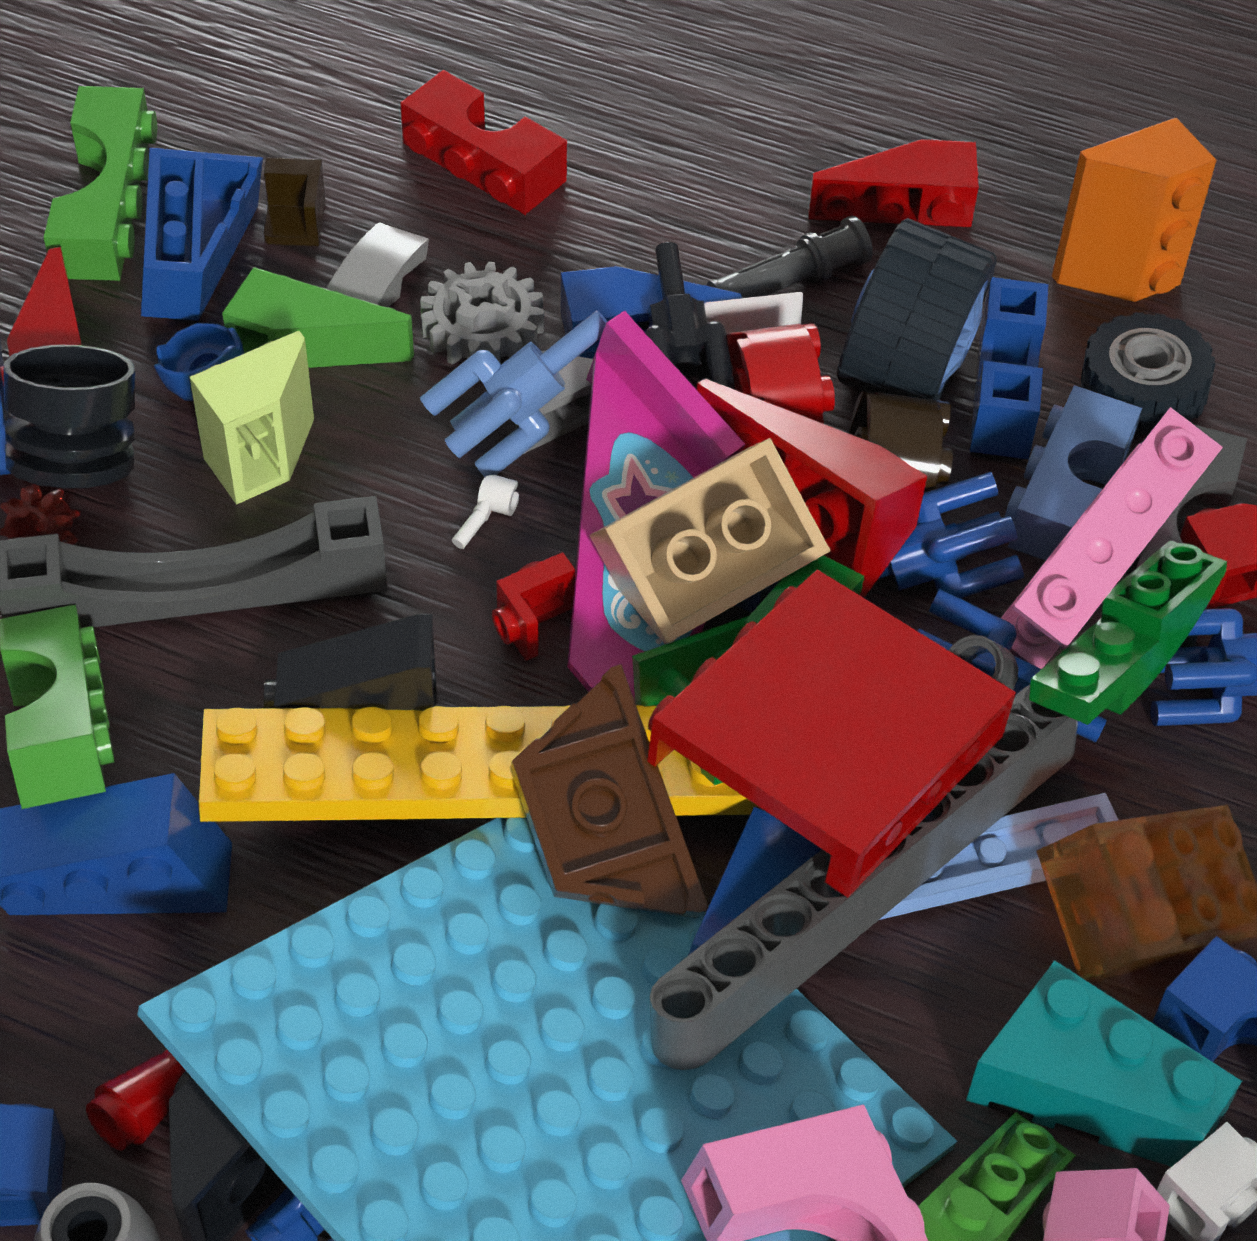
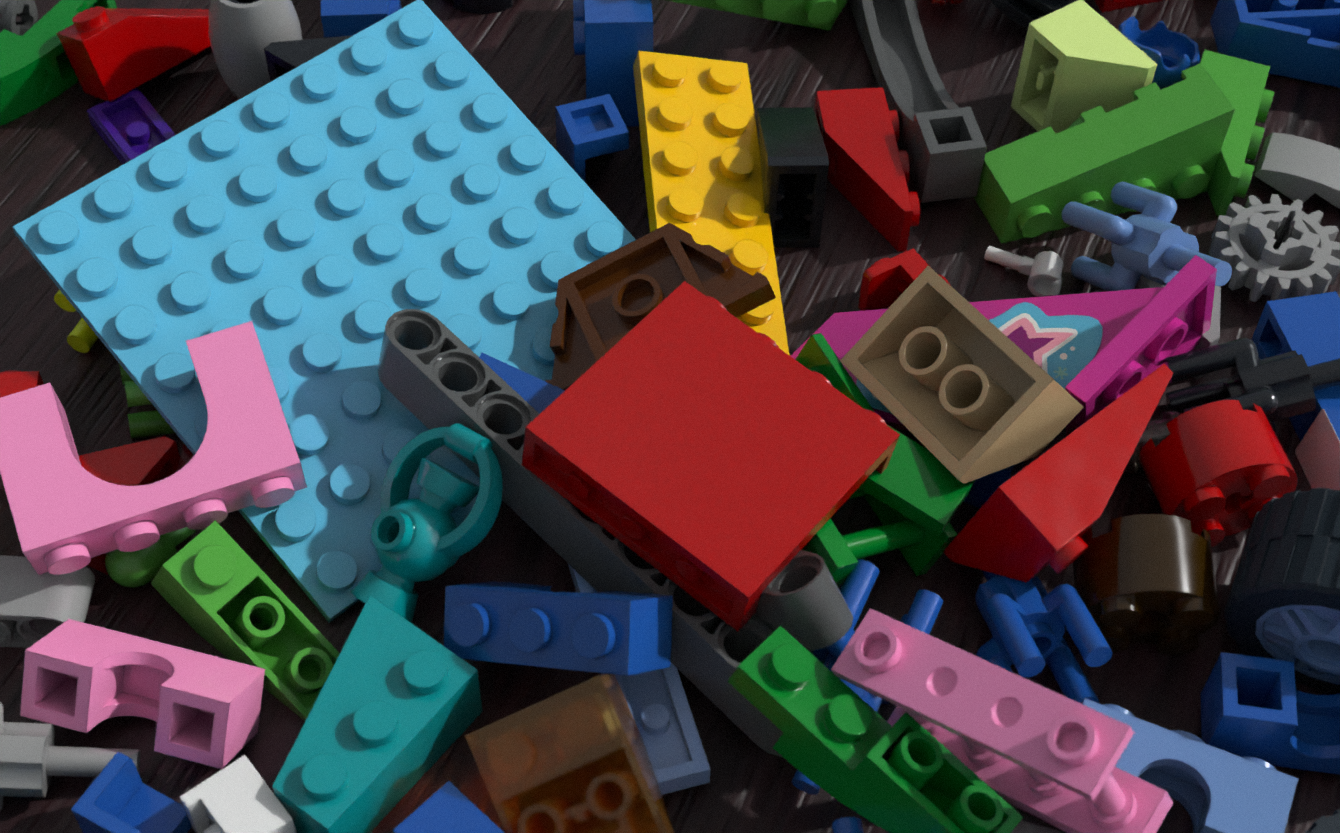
camera: 90 degrees right, 0 degrees up
(292, 877) = (589, 130): none -> blue panel
(305, 614) = (866, 160): none -> red slope
(370, 412) = (1157, 142): none -> bright green wedge
(891, 1025) = (418, 535): none -> teal piece
(999, 937) = (559, 629): none -> blue arch

